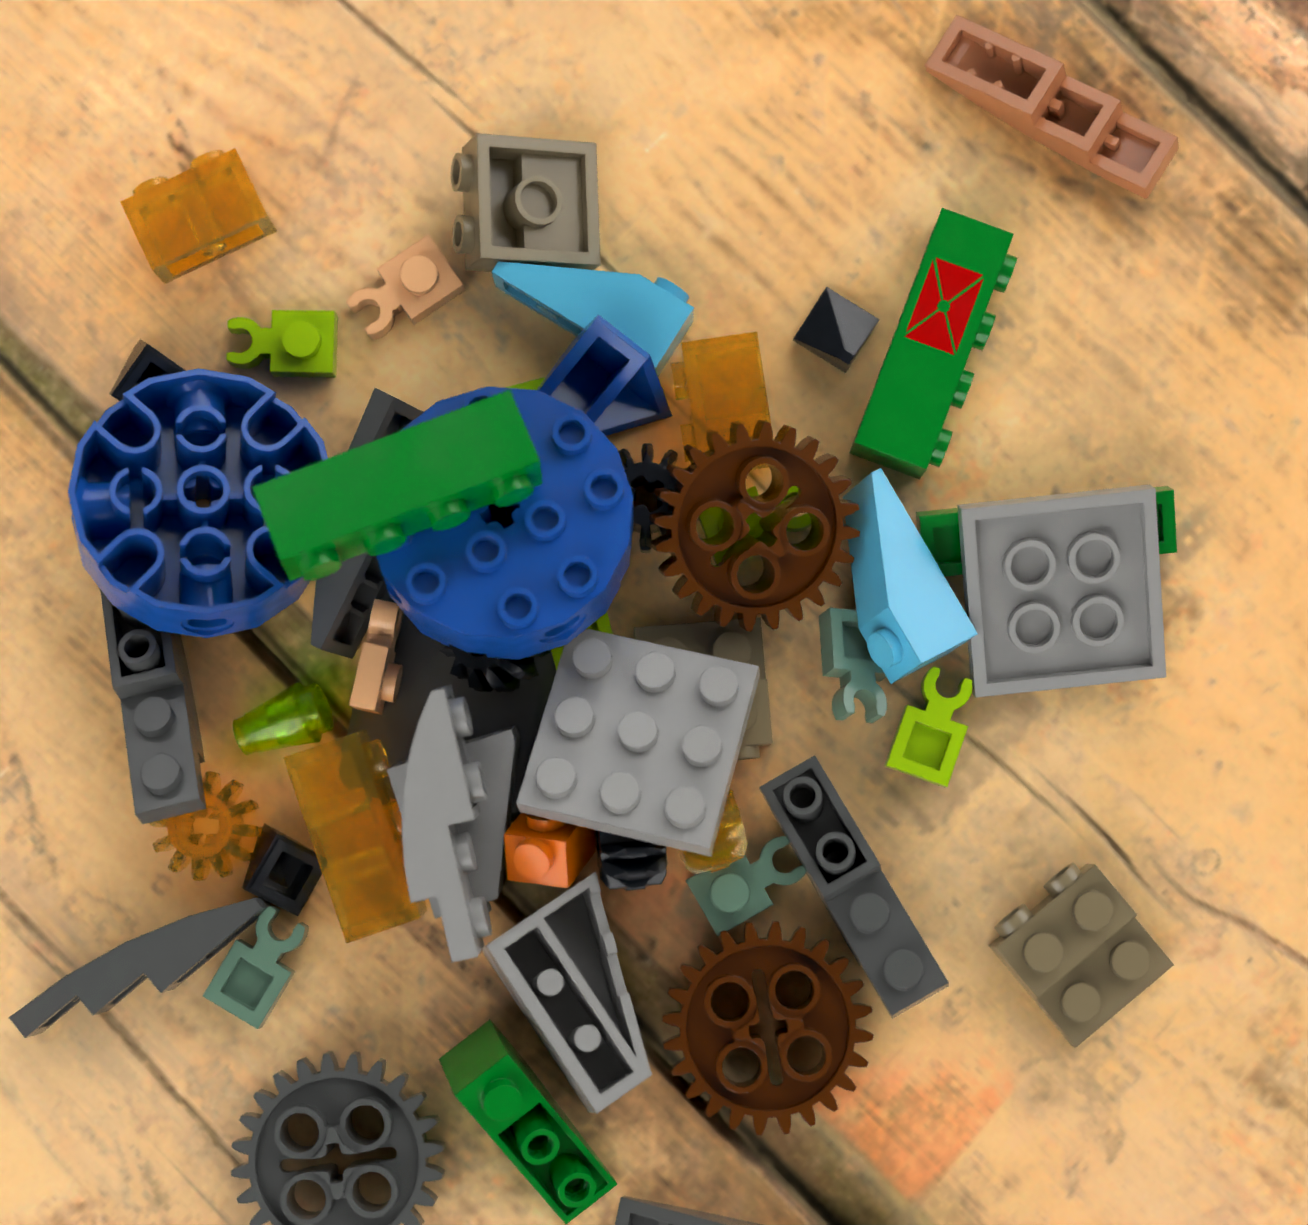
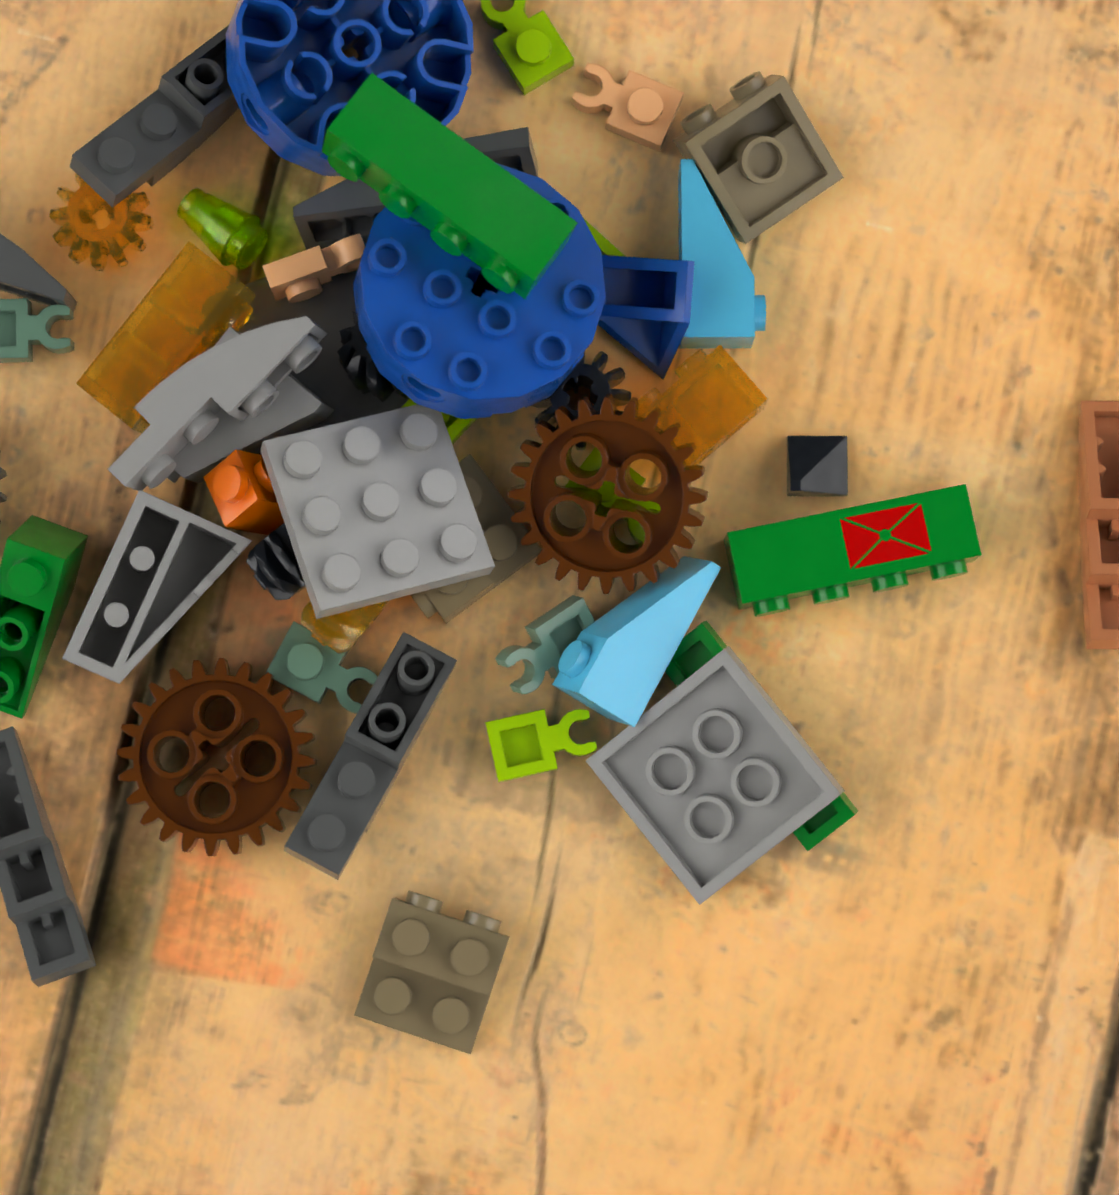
camera: 55 degrees right, 0 degrees up
(282, 870) = (103, 300): black slope -> none

